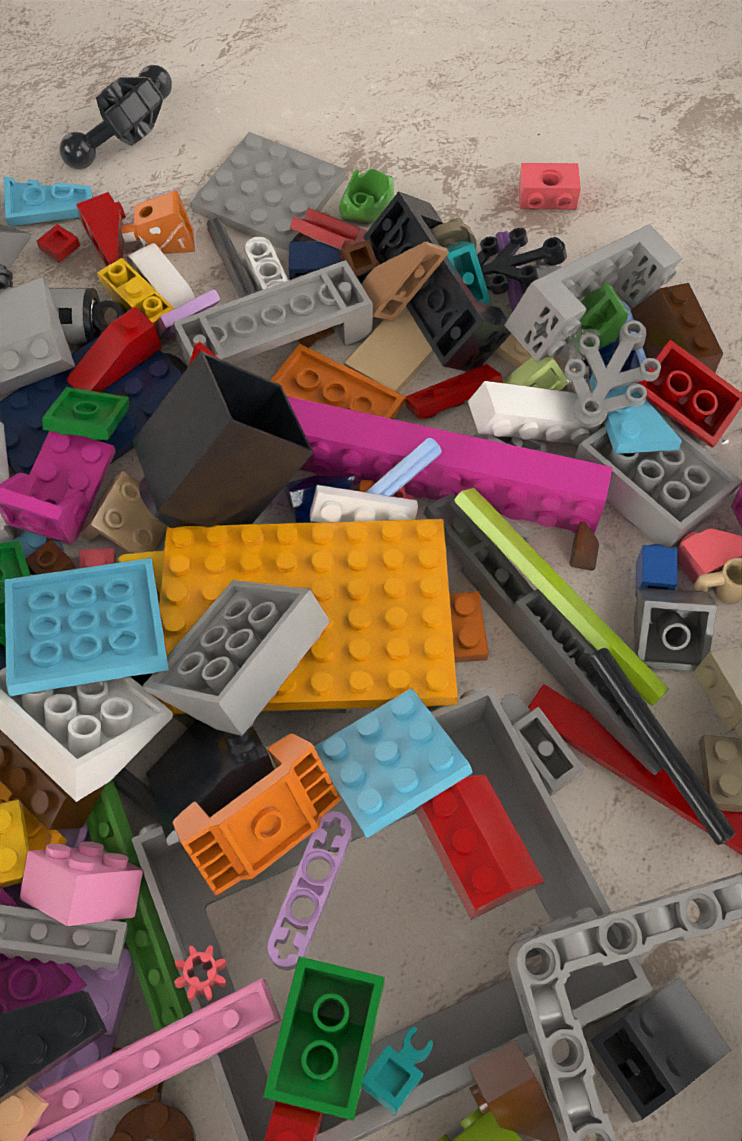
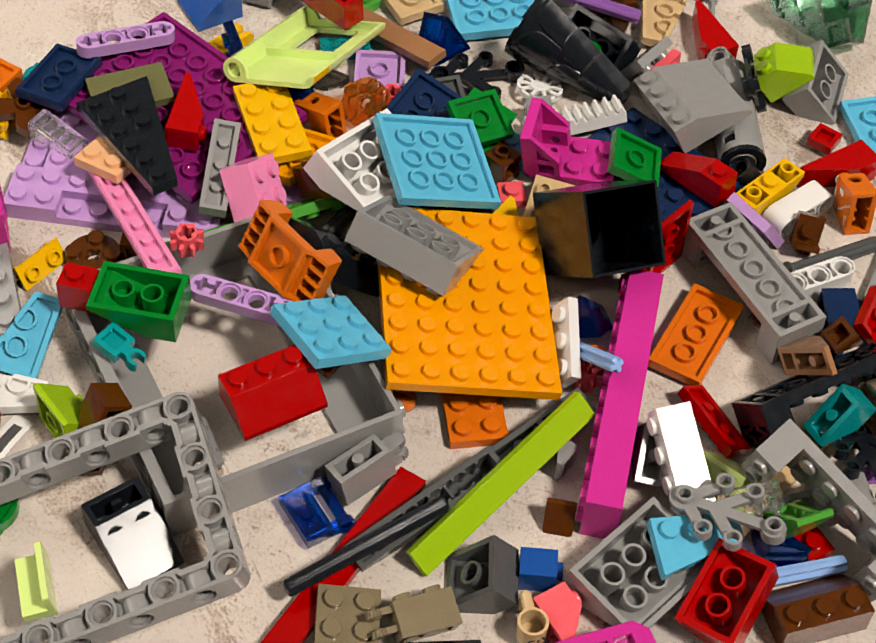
camera: 85 degrees right, 10 degrees down
(199, 274) = (807, 233): none -> reddish brown bracket
(392, 352) = (744, 372): tan tile -> none
(604, 819) = (308, 515): none -> clear blue plate

